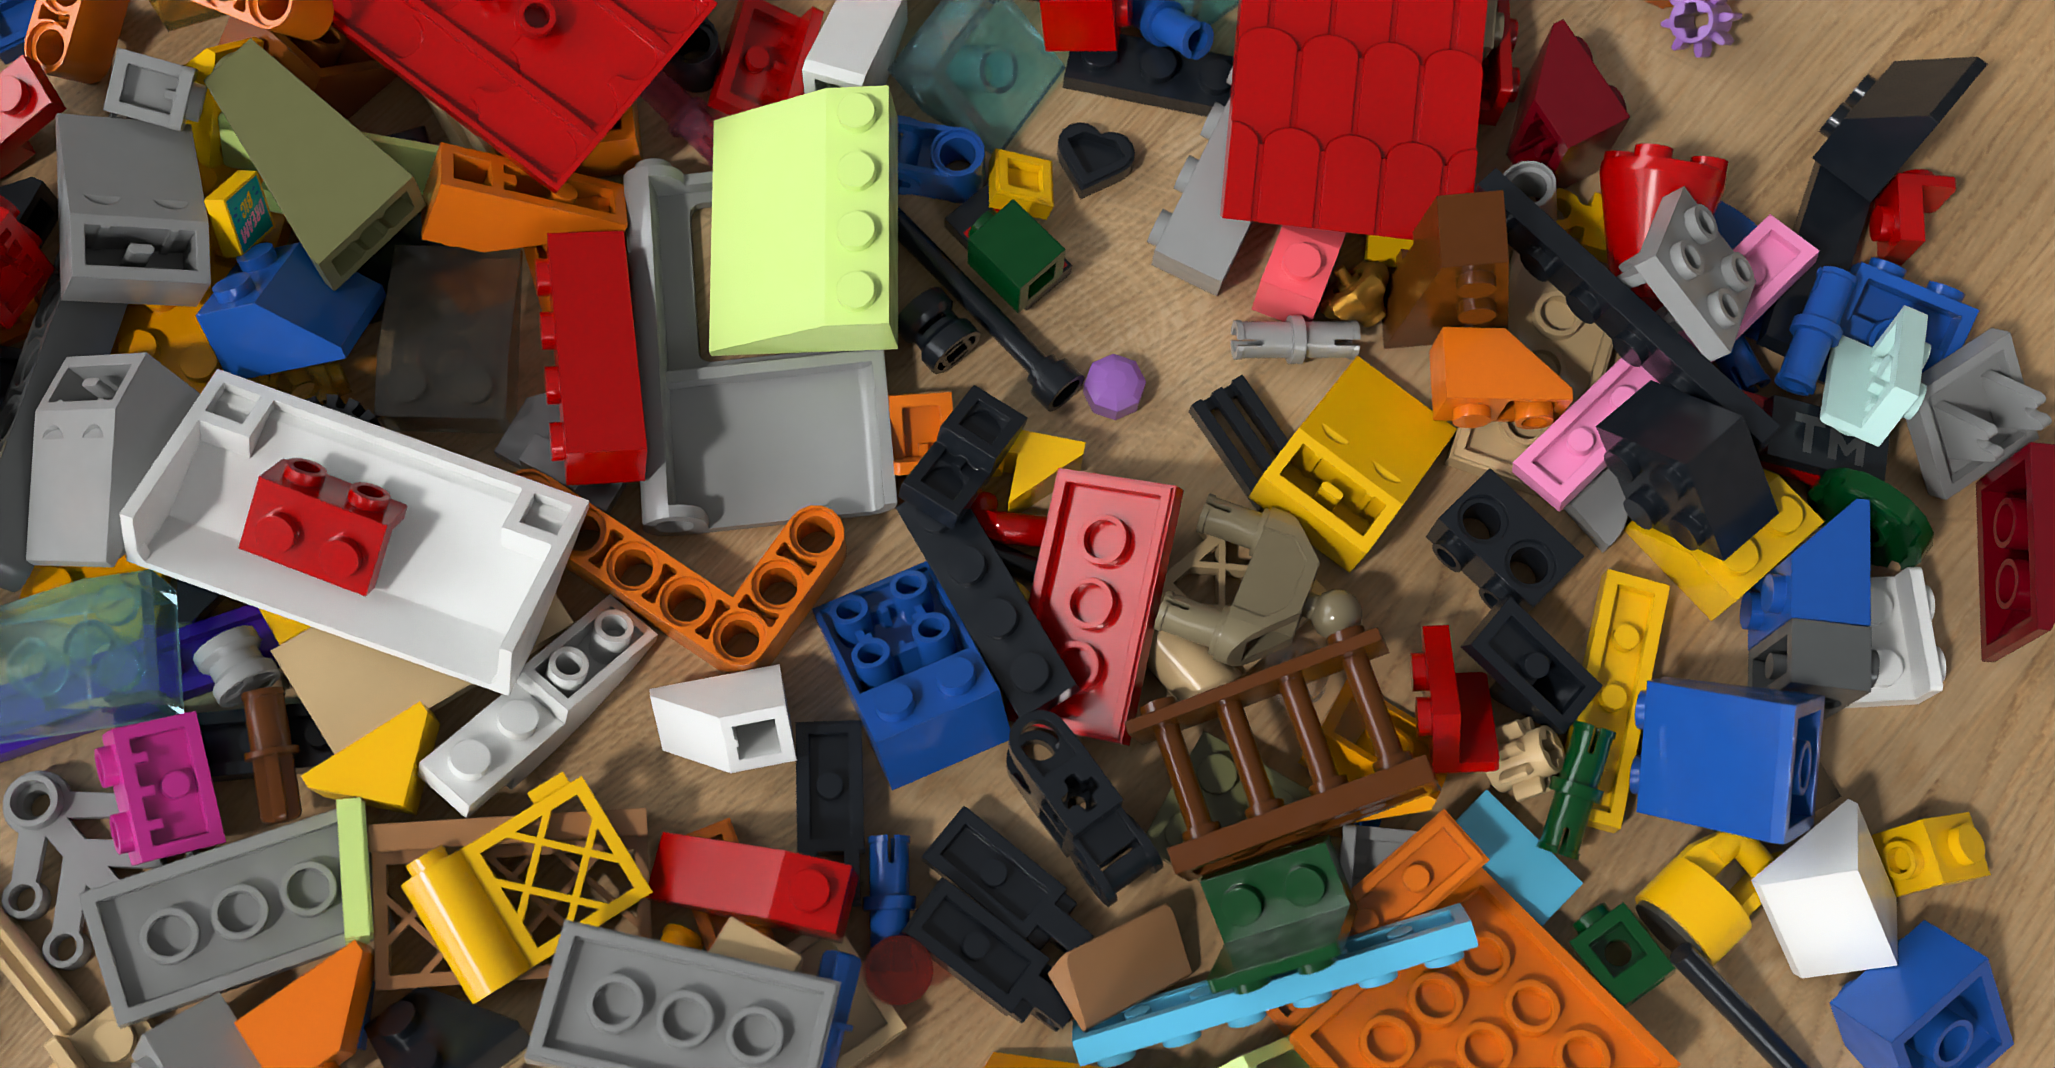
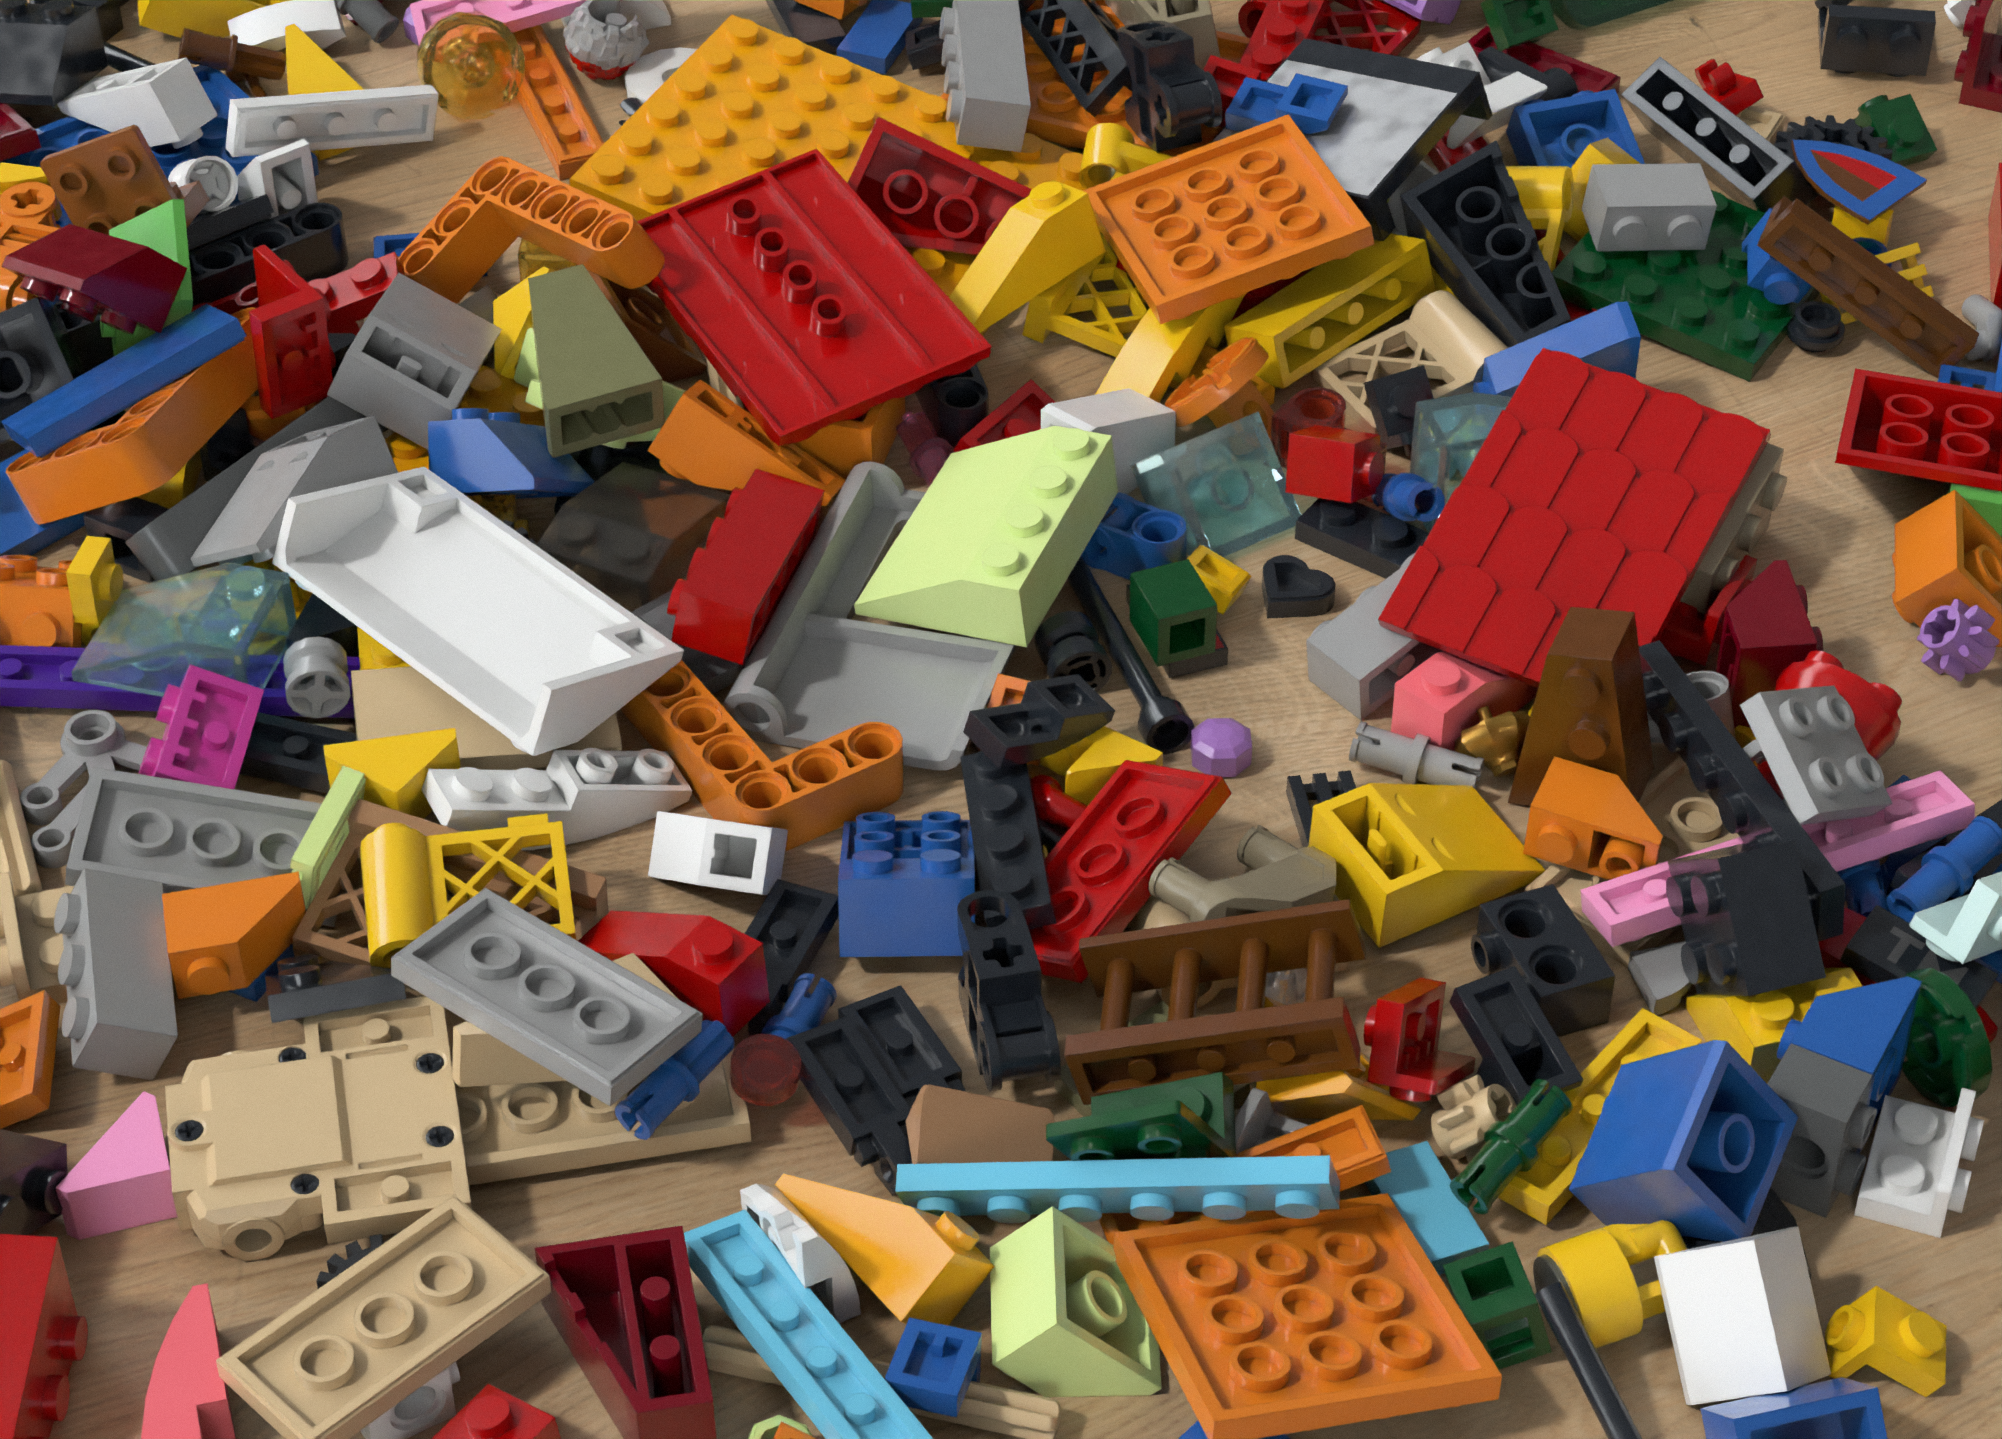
camera: 30 degrees right, 30 degrees down
(154, 90) = (485, 283): light grey bracket -> none
(239, 213) = (506, 385): tile -> none
(272, 755) = (305, 744): reddish brown axle -> none
(321, 524) = (443, 584): red bracket -> none

